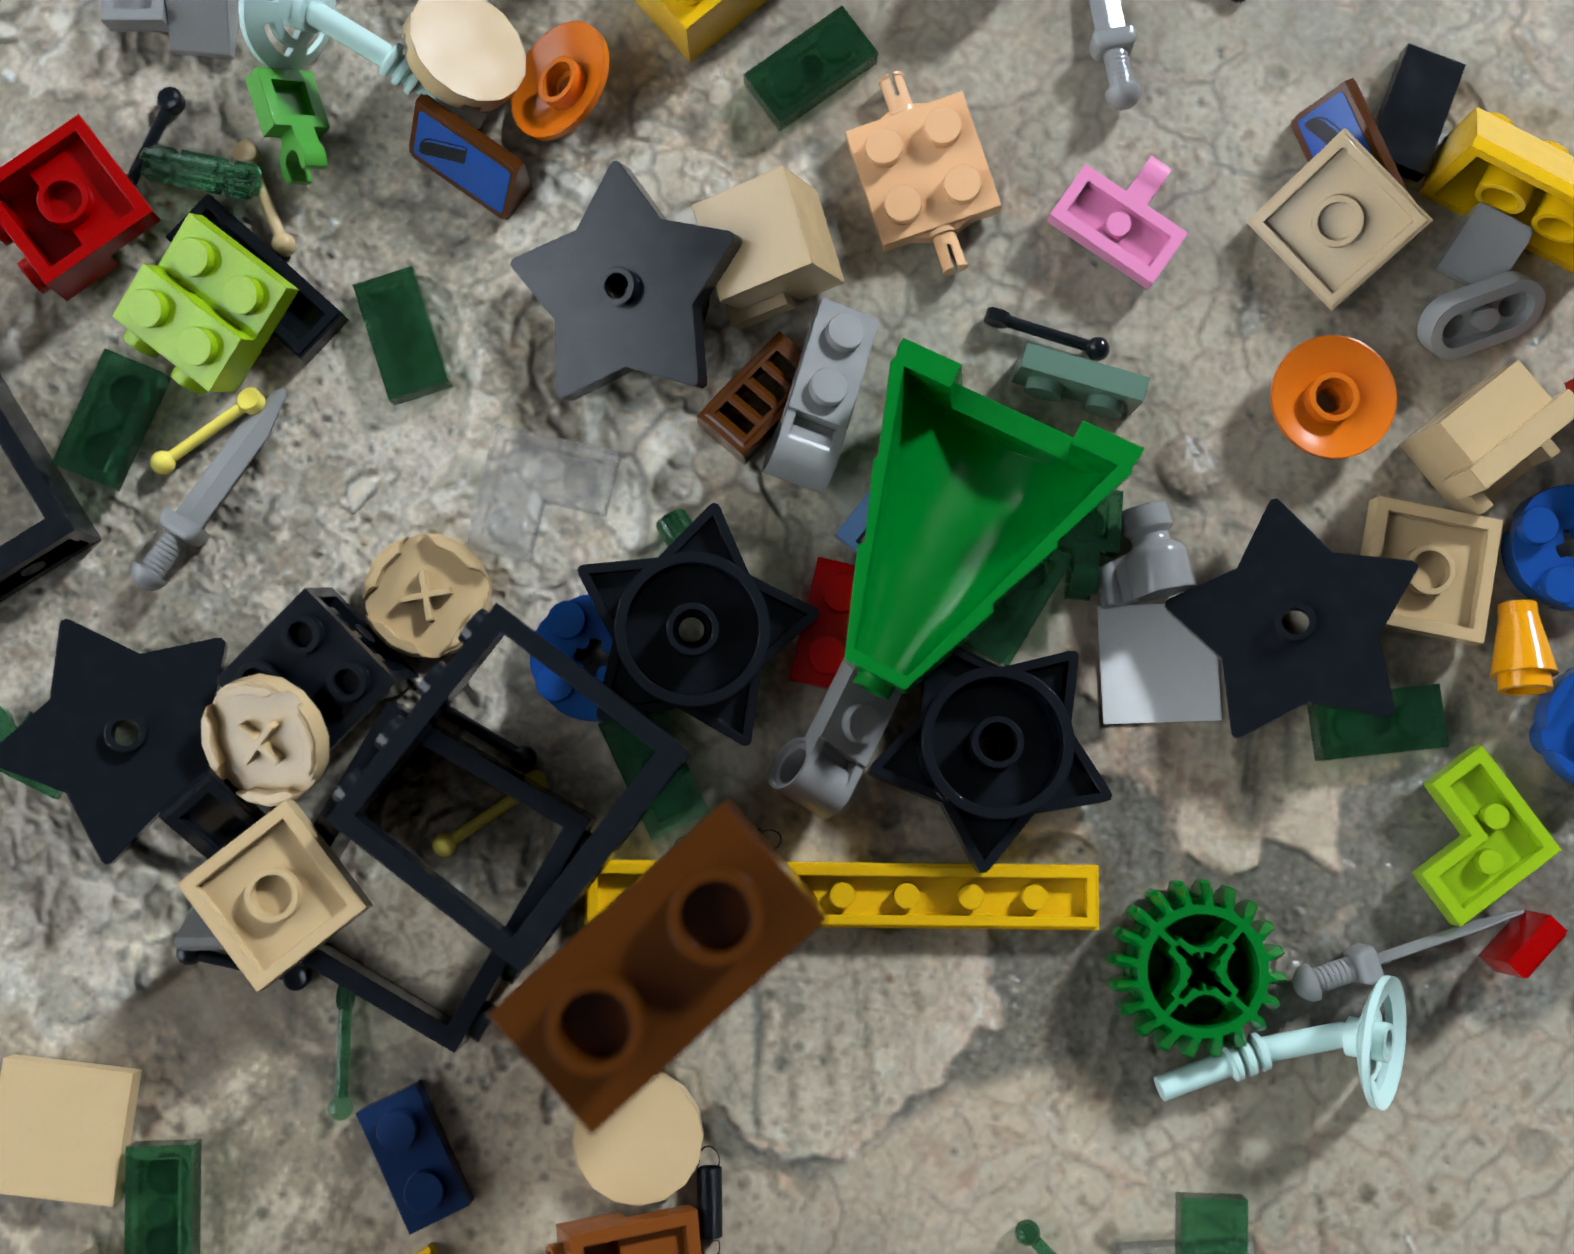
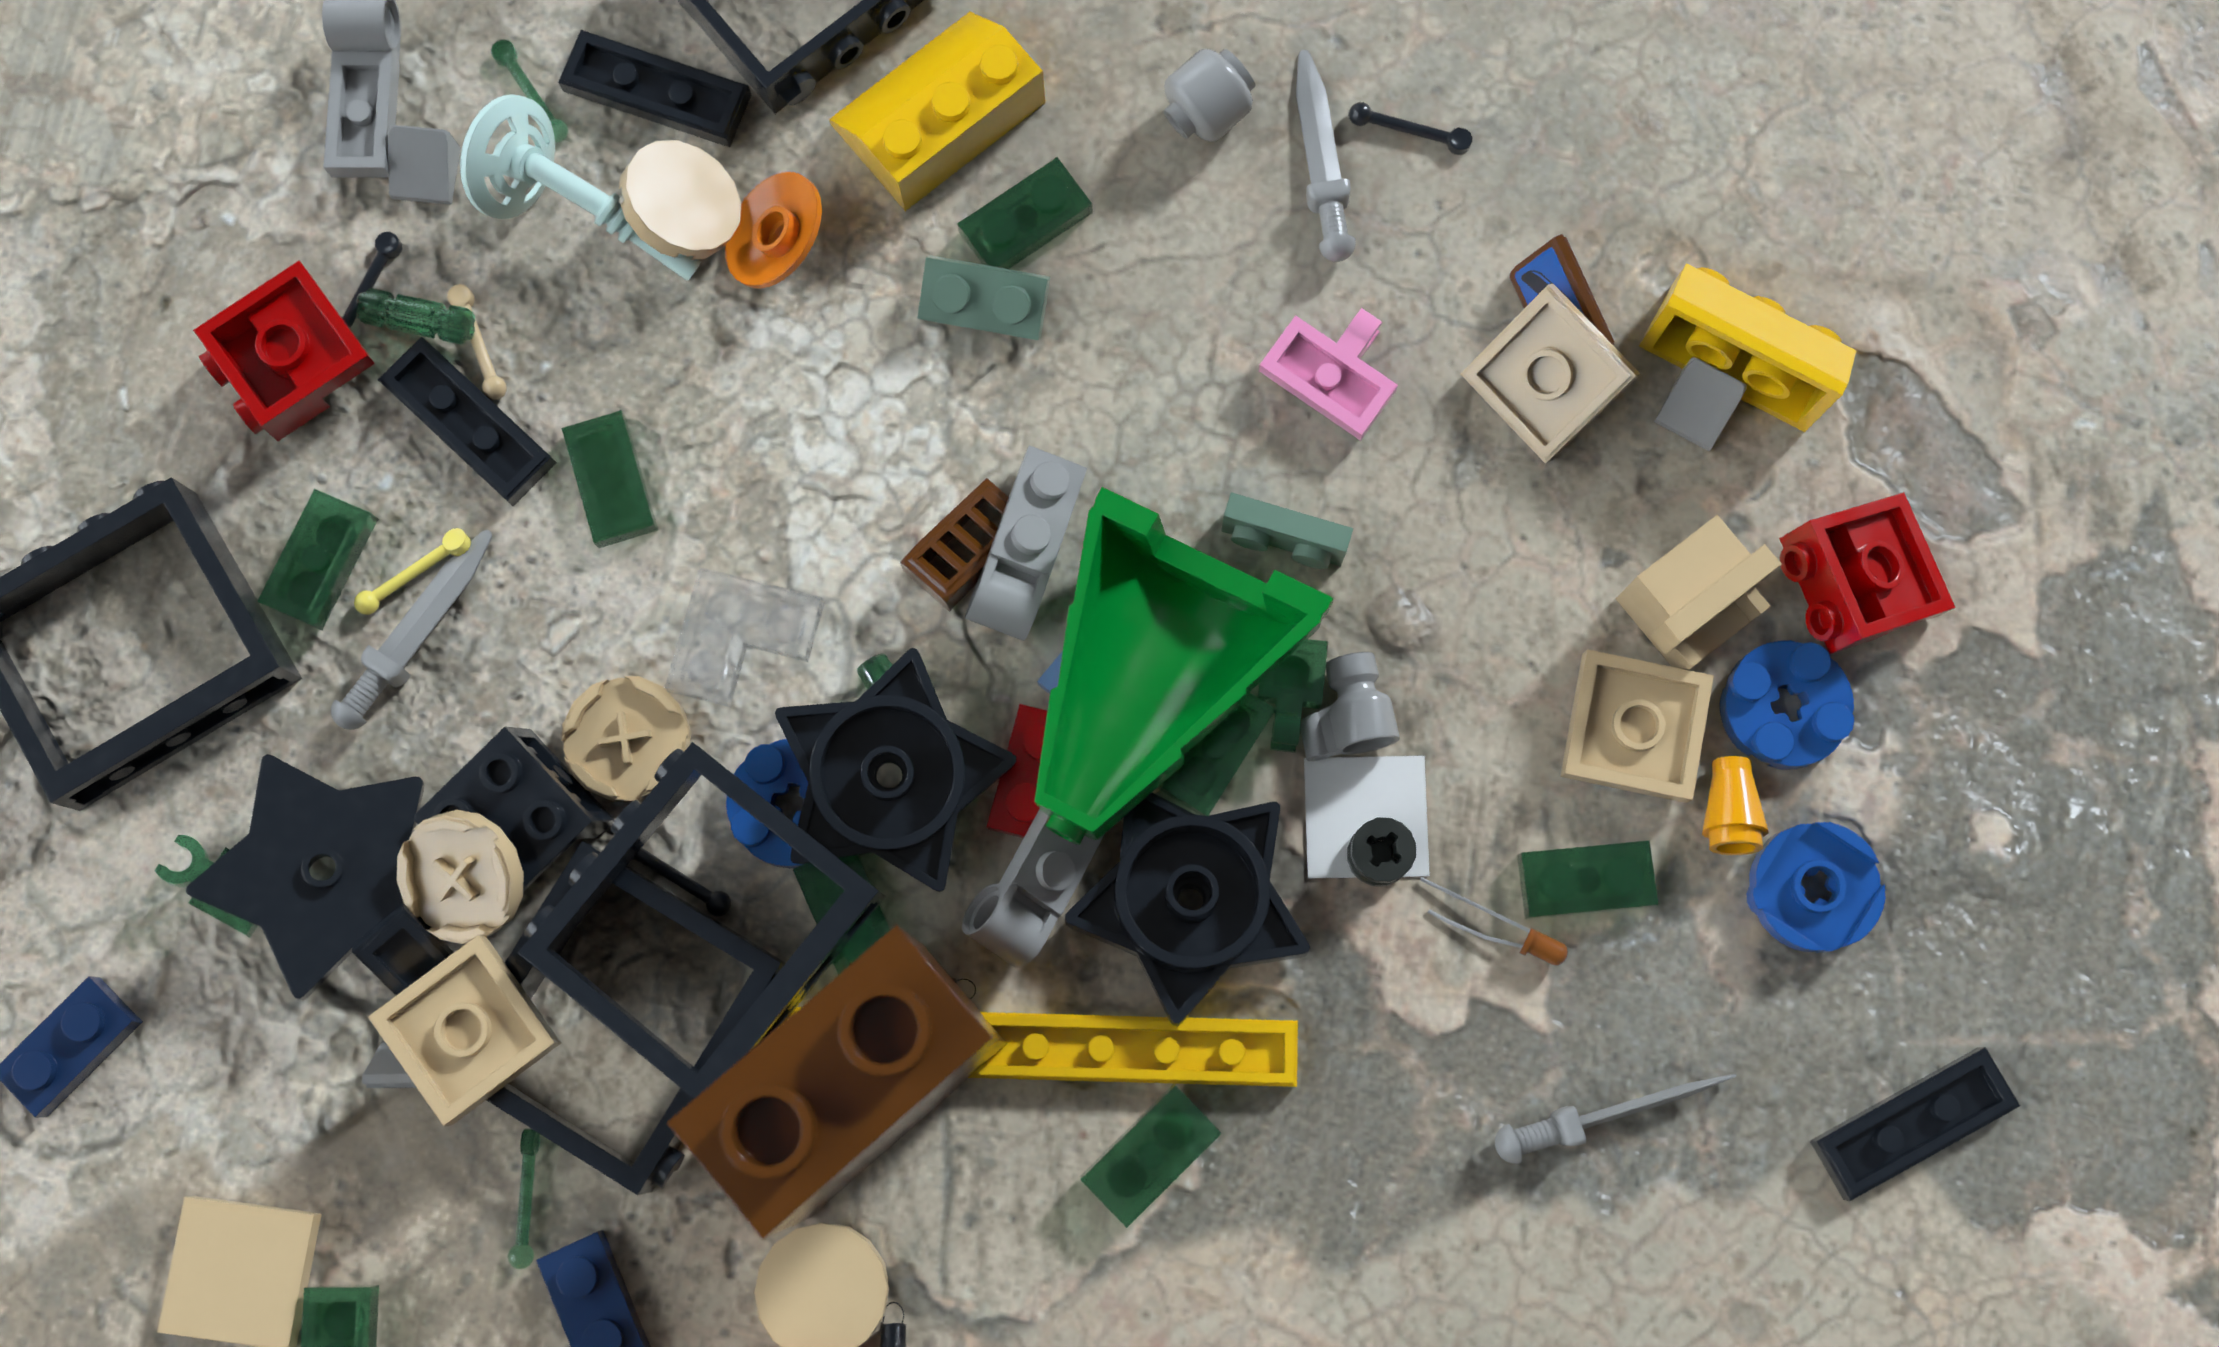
camera: 10 degrees right, 5 degrees down
(204, 307) = (415, 450): lime plate -> none
(291, 110) = (508, 256): bright green plate -> none
(294, 979) = (478, 1122): black hinge -> none
(446, 843) = (636, 989): light yellow hinge -> none
(467, 158) = (680, 305): slope -> none
(668, 279) = (833, 436): black plate -> none
(756, 143) = (983, 297): none -> sand green plate
(782, 248) = (975, 394): tan plate -> none
(923, 172) = (1135, 322): light nougat plate -> none
(958, 1000) = (1150, 1155): none -> clear green plate
(1095, 348) = (1306, 498): black hinge -> none
(1169, 707) = (1374, 861): none -> pearl dark grey wheel
(1177, 985) = (1432, 1083): green gear -> none
(1325, 784) = (1536, 943): none -> piece
(1329, 664) = (1537, 805): black plate -> none
(1356, 382) = (1560, 526): orange dish -> none
(1374, 1043) = (1560, 1200): light aqua dish -> none
(1417, 108) = (1634, 264): black tile -> none
(1475, 319) = (1691, 472): light grey plate -> none
(1497, 839) = (1707, 1003): lime plate -> none
(1523, 944) = (1731, 1107): red tile -> none

